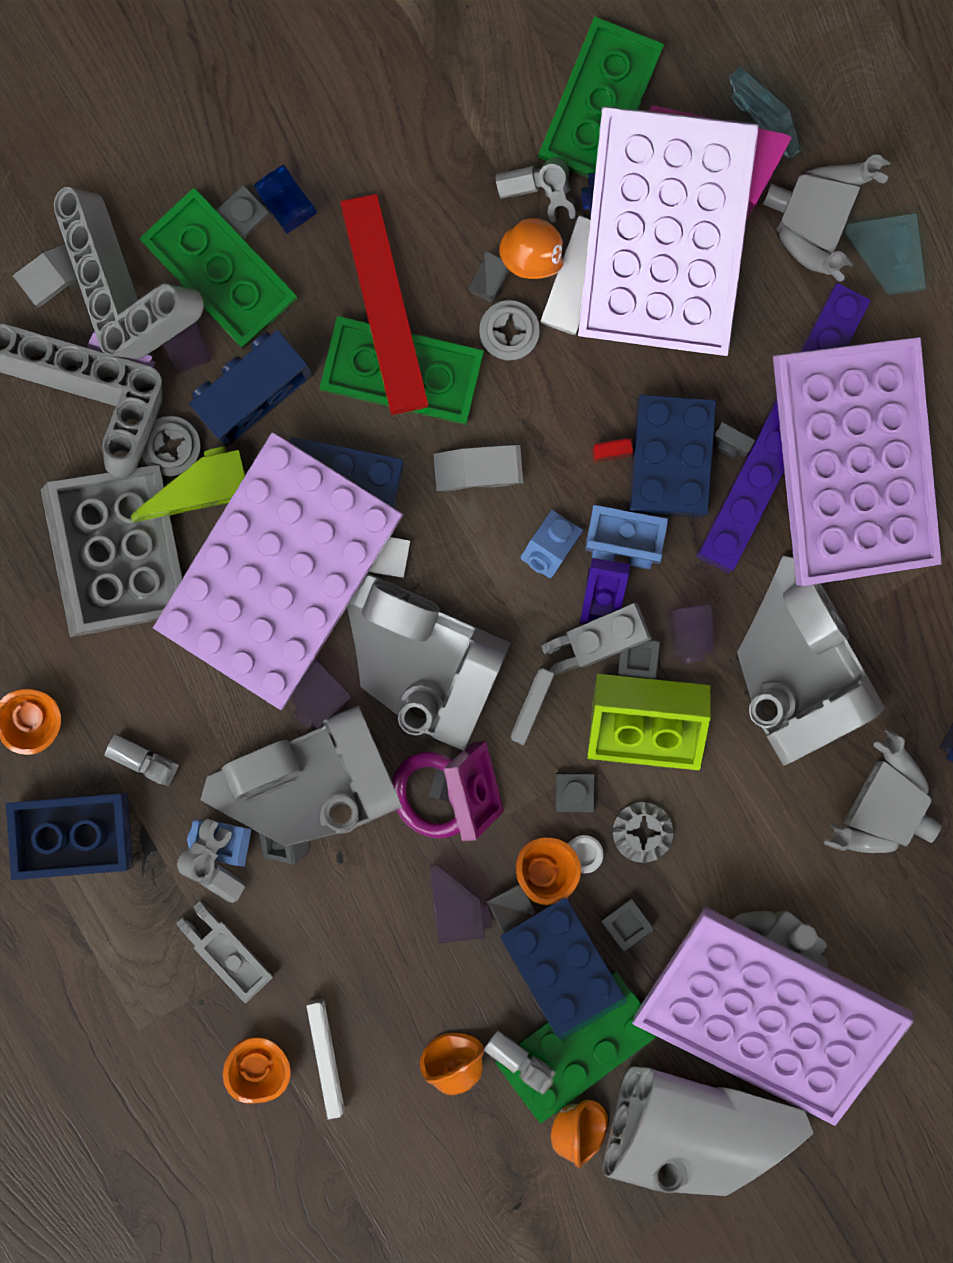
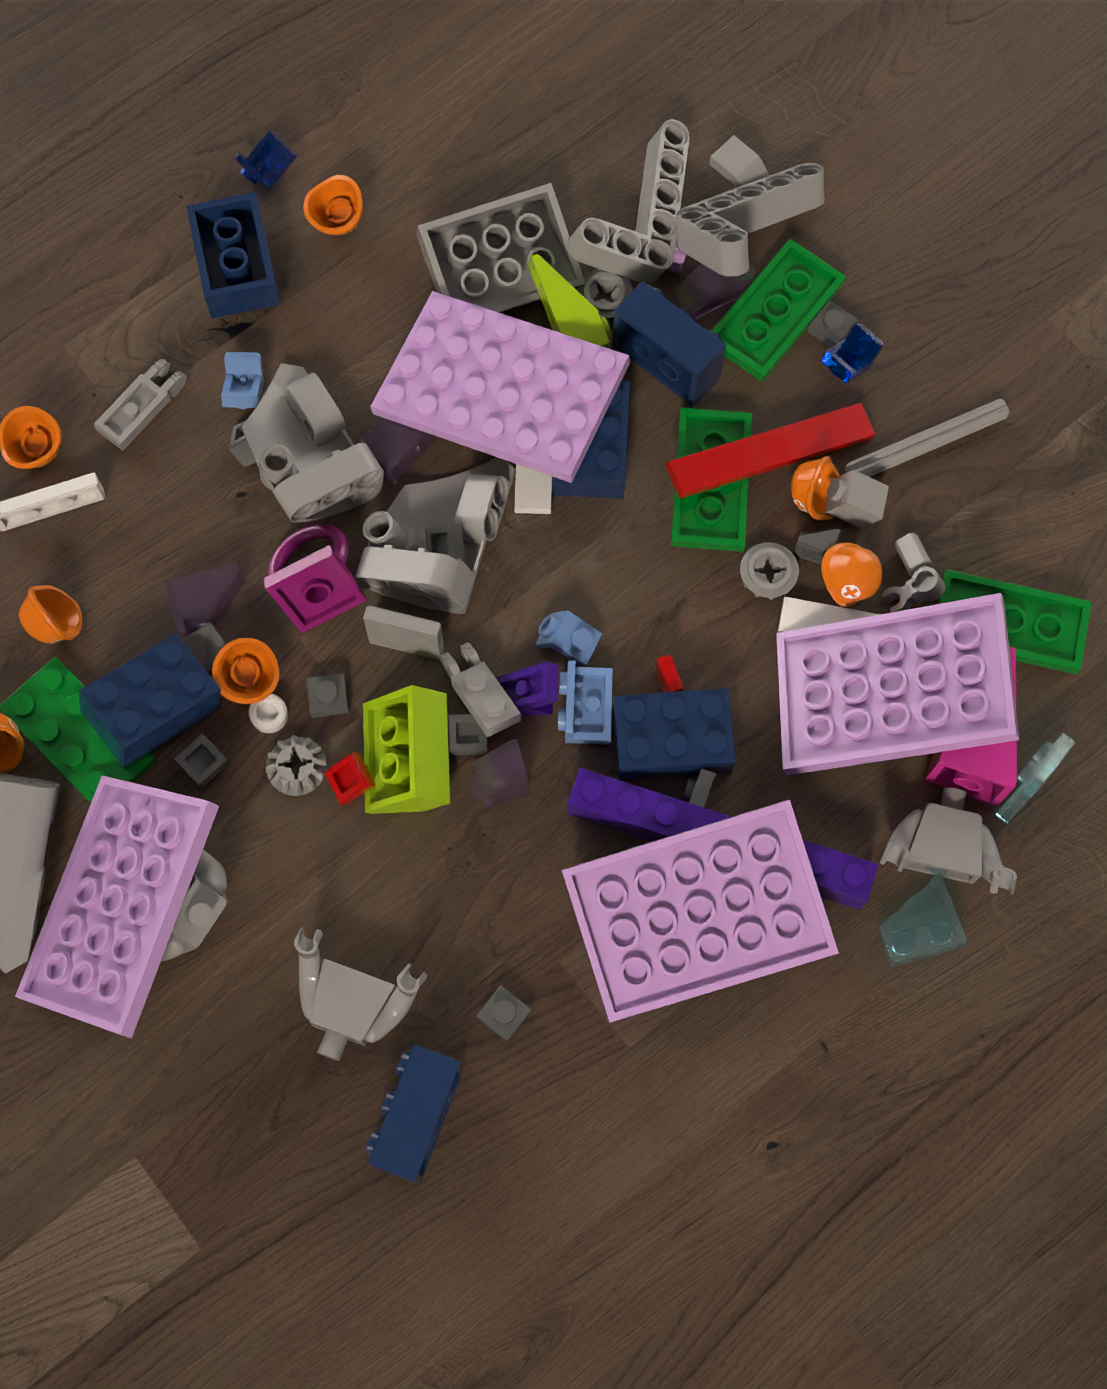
camera: 80 degrees right, 15 degrees down
(139, 759) = (310, 309): light grey bar -> none
(199, 863) = (217, 359): light grey bar -> none
(390, 141) = (930, 439): none -> light grey axle
(432, 265) = (810, 486): none -> orange helmet
(438, 654) = (445, 540): none -> dark grey plate
(450, 227) = (856, 499): none -> light grey brick
(478, 468) = (631, 559): light grey slope -> none
(515, 1057) = (46, 680): light grey bar -> none
(666, 780) = (349, 778): none -> red tile
(806, 667) = (476, 896): light grey panel -> none
(916, 662) = (504, 1013): none -> dark grey plate

